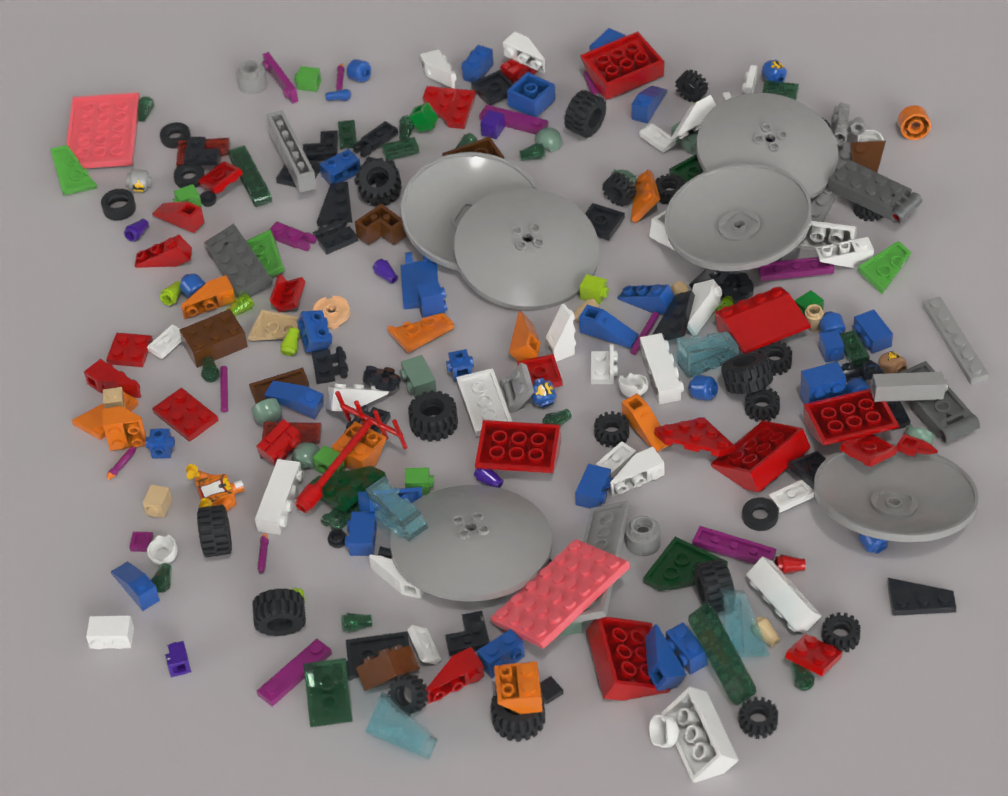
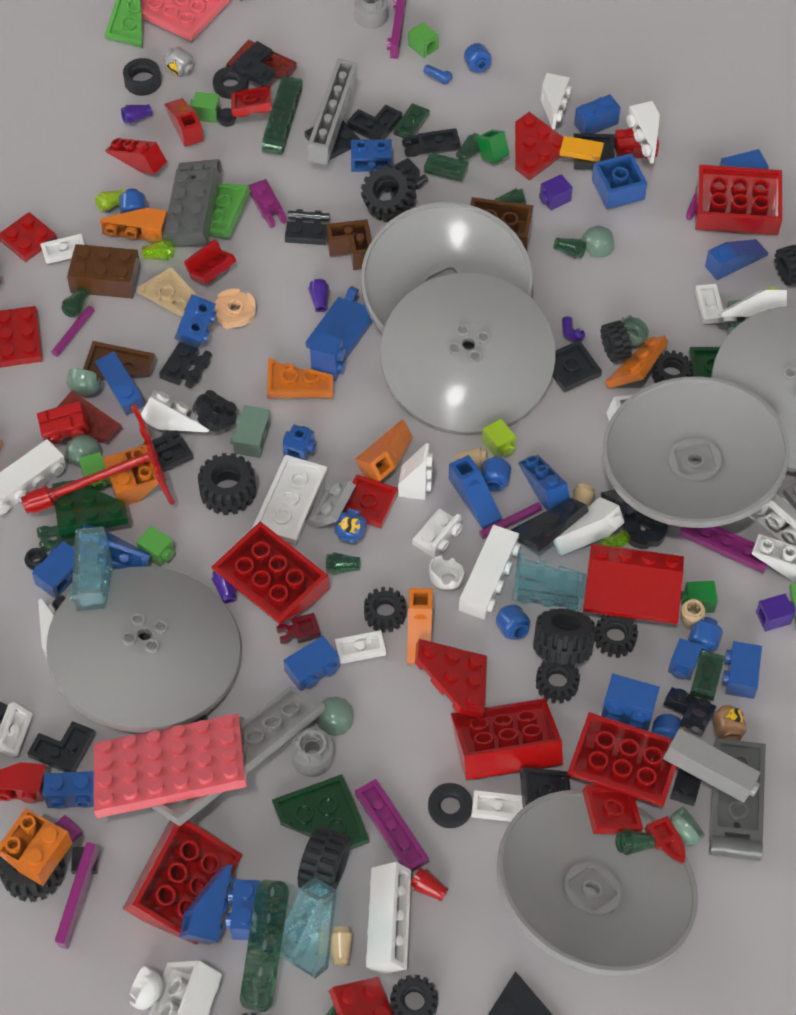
camera: 30 degrees right, 10 degrees up
(171, 128) = (254, 22): black tyre -> none
(290, 343) = (166, 320): lime cone -> none
(336, 205) = (336, 194): black wing -> none
(339, 82) = (456, 55): magenta piece -> none
(487, 88) = (581, 149): none -> light orange tile
(517, 120) = (586, 200): magenta plate -> none
(565, 471) = (302, 628): none -> dark red plate
(567, 708) = (76, 895): none -> magenta tile
(585, 113) = (651, 234): black tyre -> none
(585, 204) = (569, 332): none -> dark purple arm
(612, 306) = (496, 473): none -> blue head
(639, 470) = (371, 674): white slope -> none
(639, 506) = (336, 717): none -> sand green hair
(862, 289) = (775, 612): none -> dark purple brick
(897, 458) = (633, 841): none -> clear green cone

